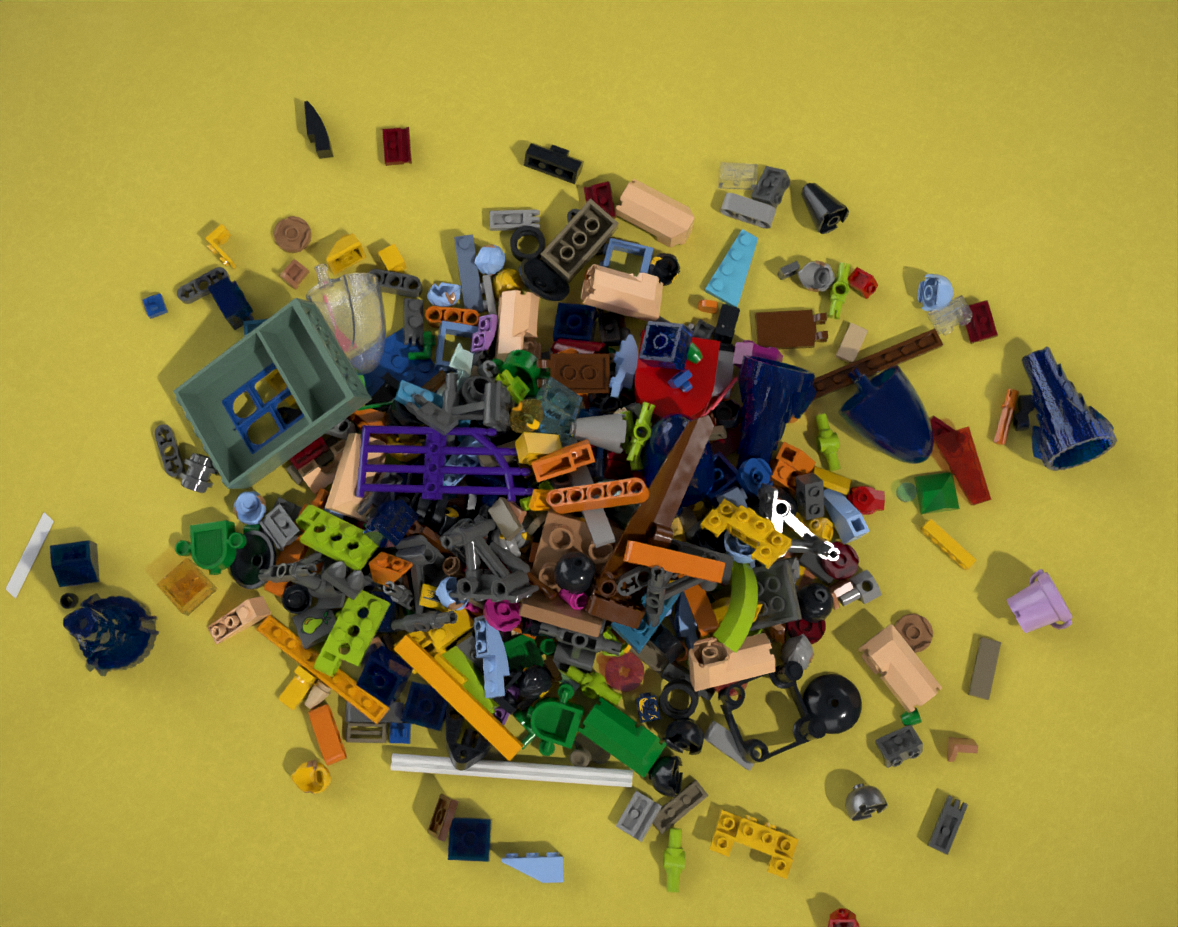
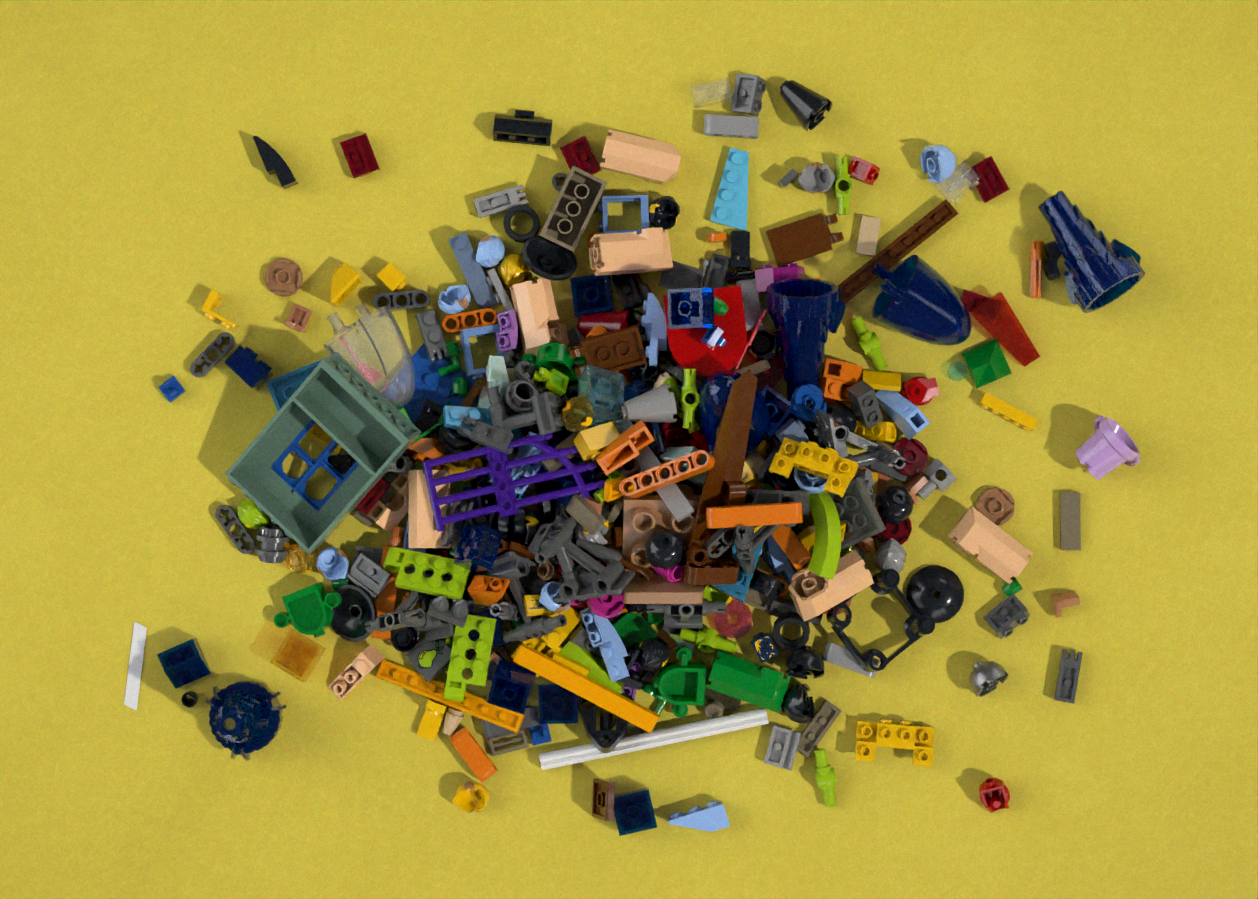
camera: 15 degrees left, 10 degrees up
(188, 442) = (251, 515): none -> lime hair
(220, 496) = (299, 560): none -> clear yellow hair
(423, 375) = (460, 387): none -> green hose

